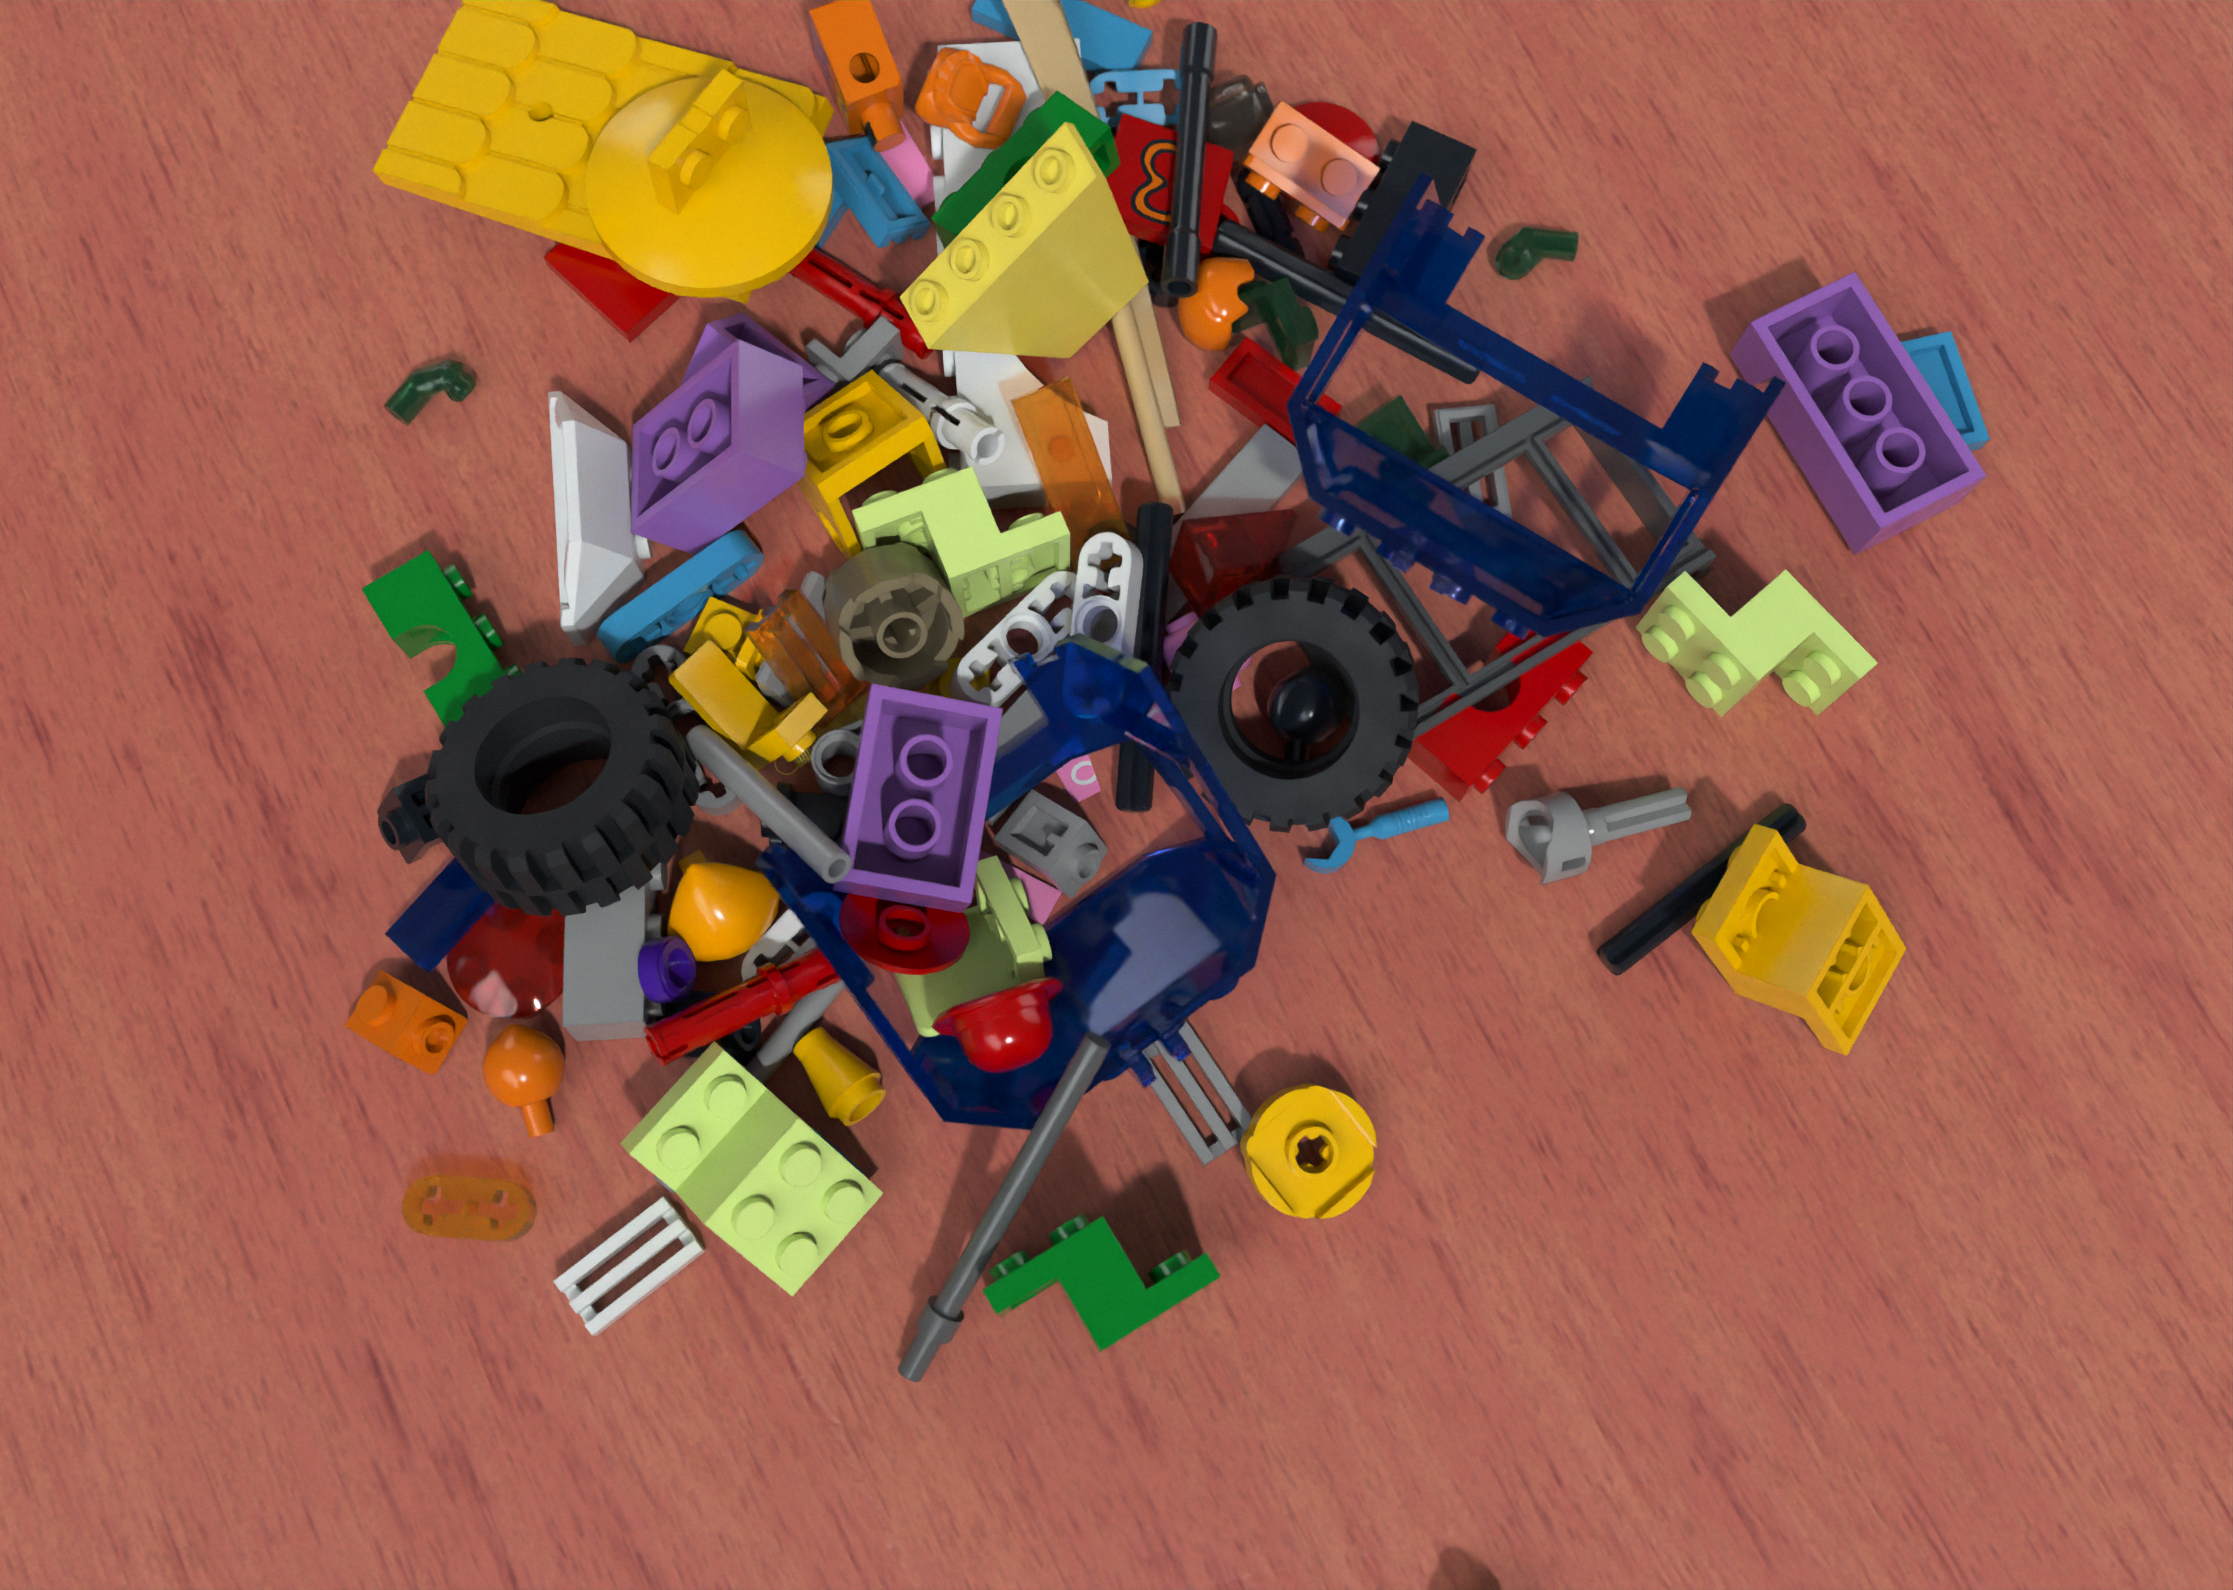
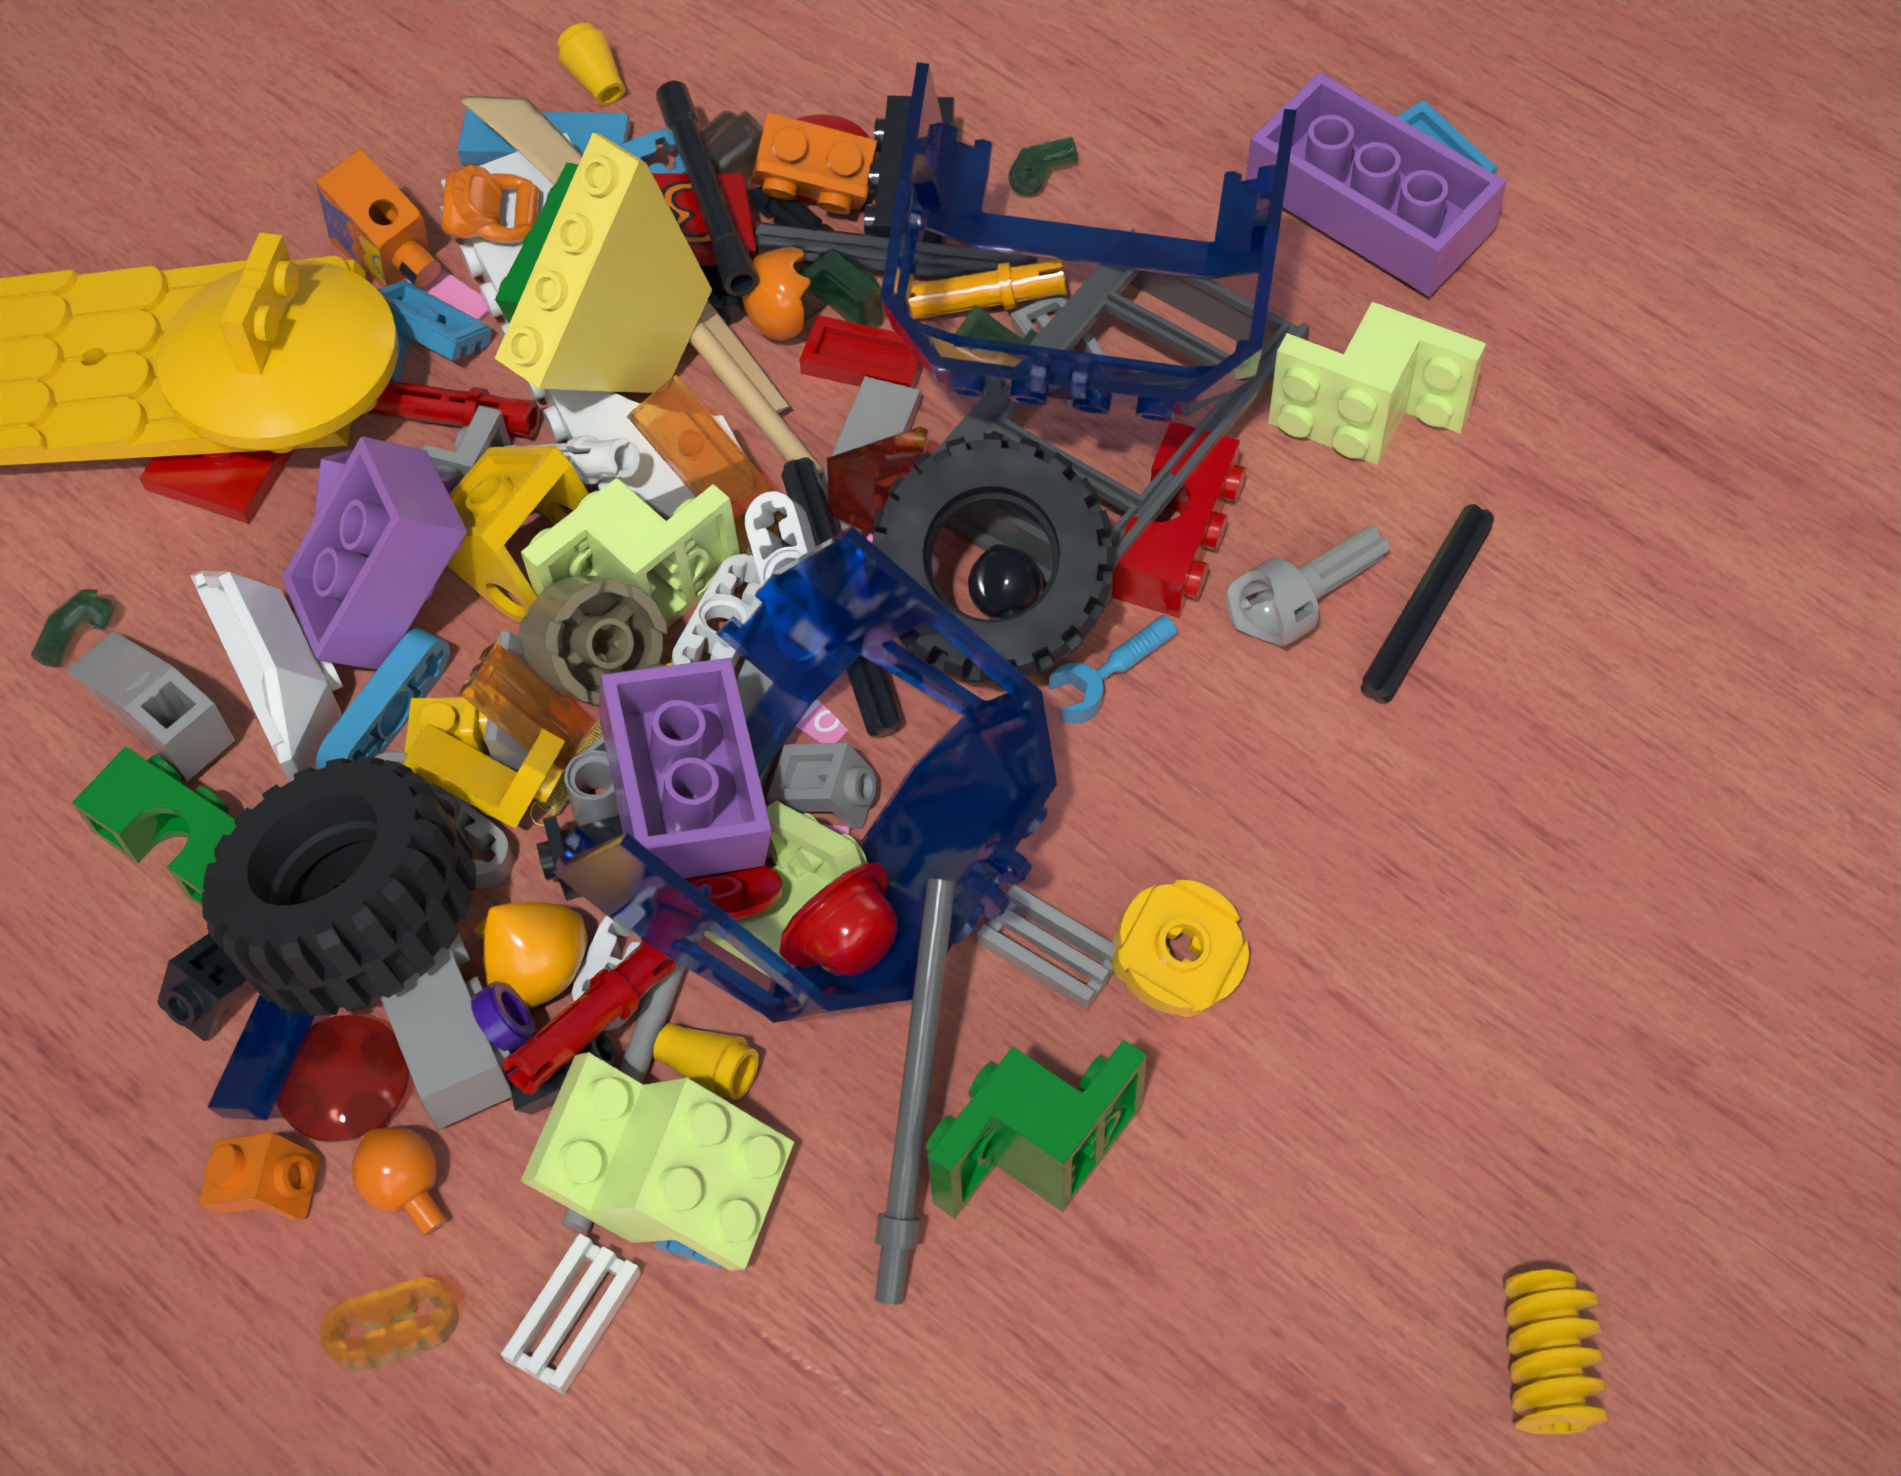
camera: 15 degrees left, 15 degrees down
(470, 505) = (154, 703): none -> light grey slope
(769, 804) = (542, 823): light grey piece -> none
(1425, 377) = (988, 289): none -> light orange pin
(1799, 939) = (1532, 599): yellow bracket -> none

